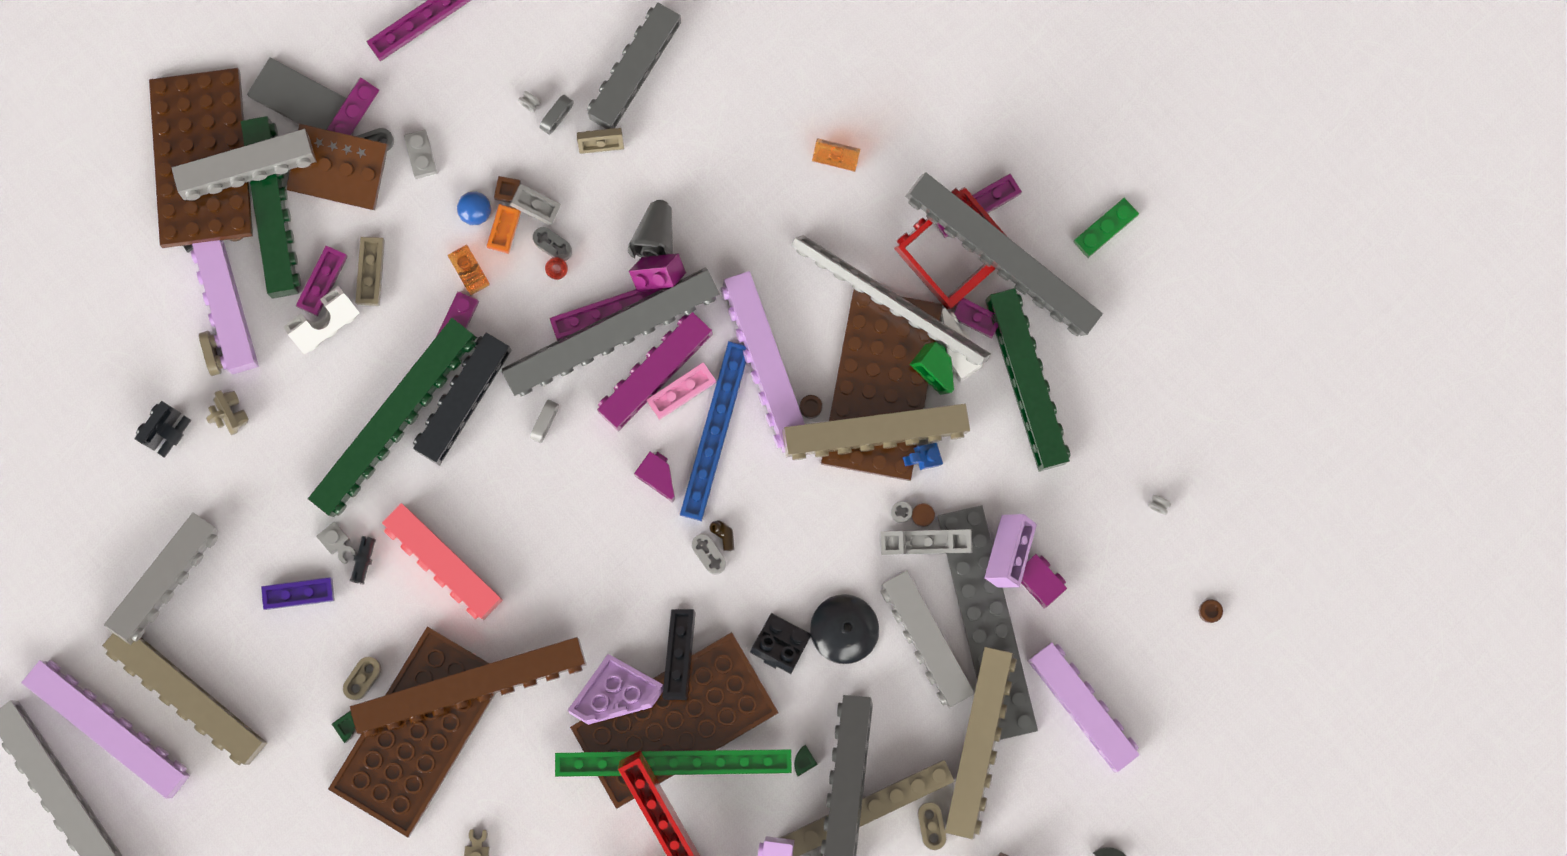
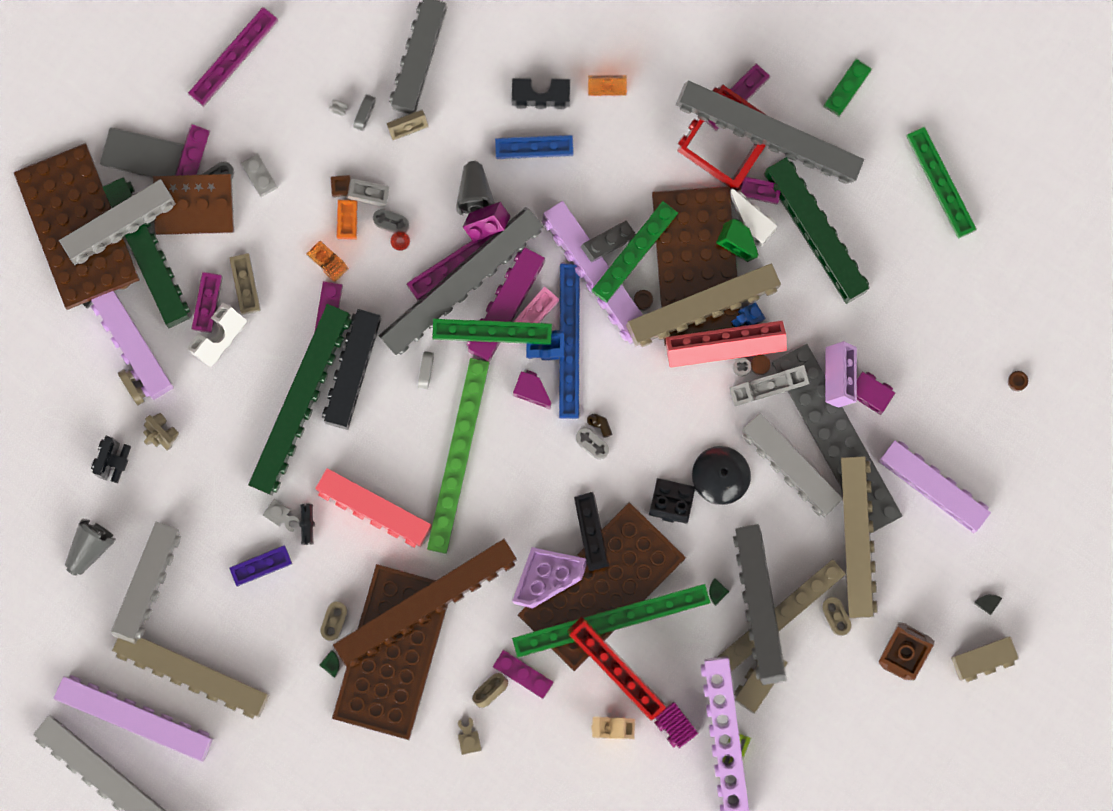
camera: 10 degrees left, 0 degrees up
(110, 519) = (87, 546): none -> dark grey cone
(473, 208) = (317, 209): blue hair -> none
(515, 805) = (490, 690): none -> dark tan plate
(554, 528) = (458, 456): none -> bright green plate
(558, 796) = (523, 674): none -> magenta plate
(629, 397) = (492, 331): none -> green plate
(686, 430) = (547, 351): none -> blue cylinder
(735, 202) = (534, 147): none -> blue plate
(776, 152) = (557, 96): none -> black arch
(789, 330) = (608, 241): none -> dark grey plate
(814, 350) = (634, 252): none -> green plate
(890, 481) = (726, 343): none -> coral brick
(897, 304) = (679, 192): plate -> none
(1159, 504) = (952, 304): light grey bush -> none
(1183, 362) = (941, 182): none -> green plate

